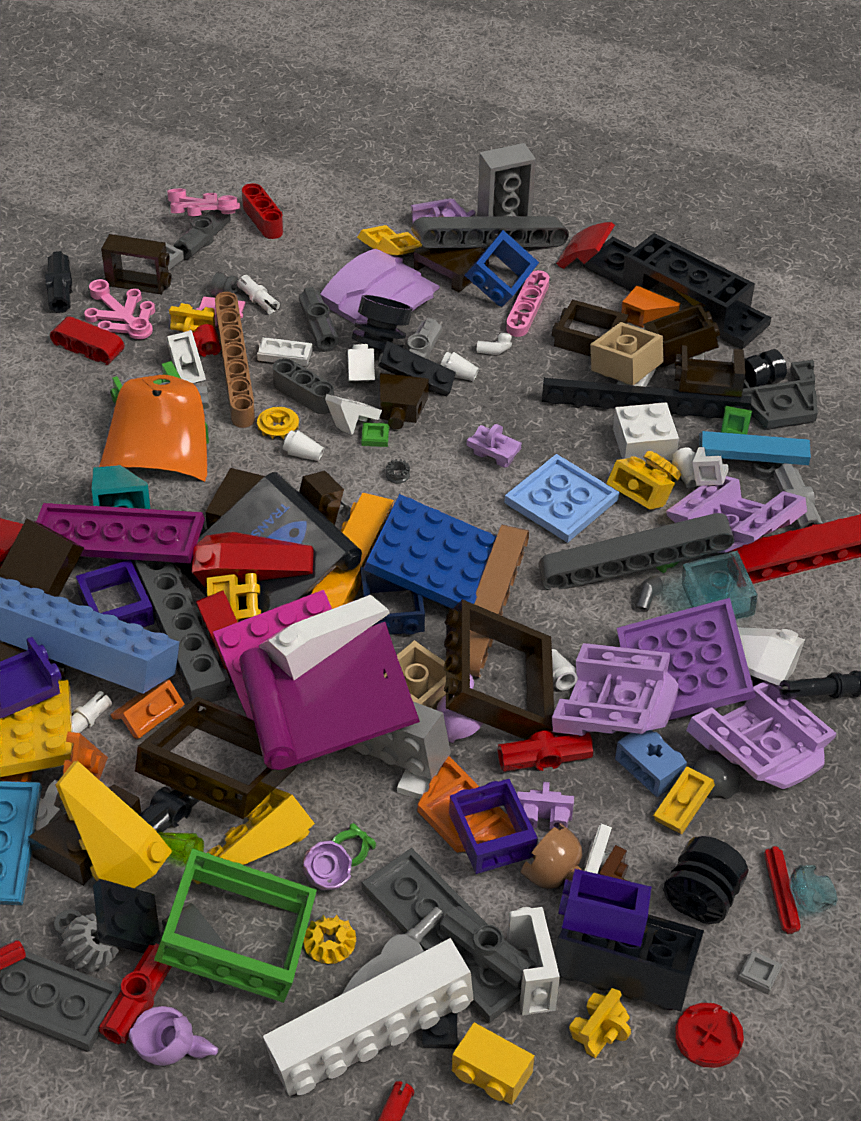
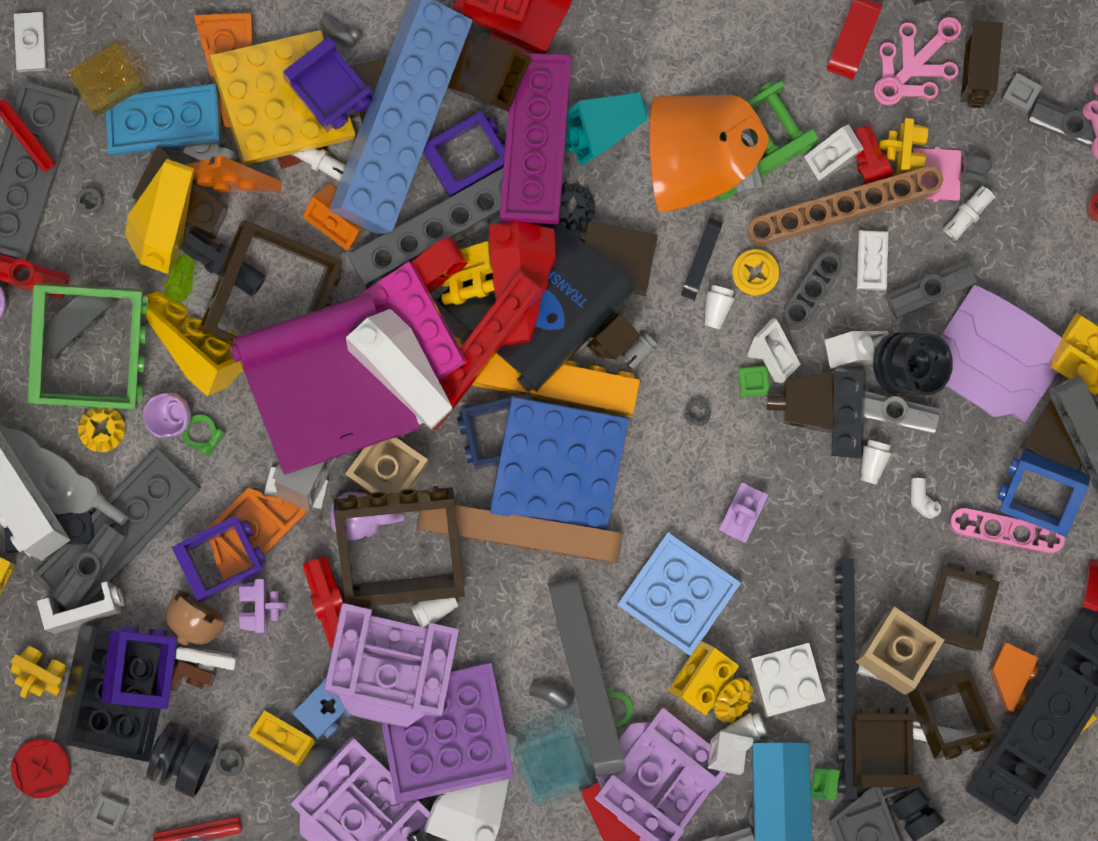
camera: 85 degrees right, 35 degrees up
(83, 945) = (55, 232): light grey gear -> none
(125, 916) = (91, 249): black plate -> none
(272, 455) = (702, 258): none -> black beam
(291, 564) = (490, 336): none -> red tile

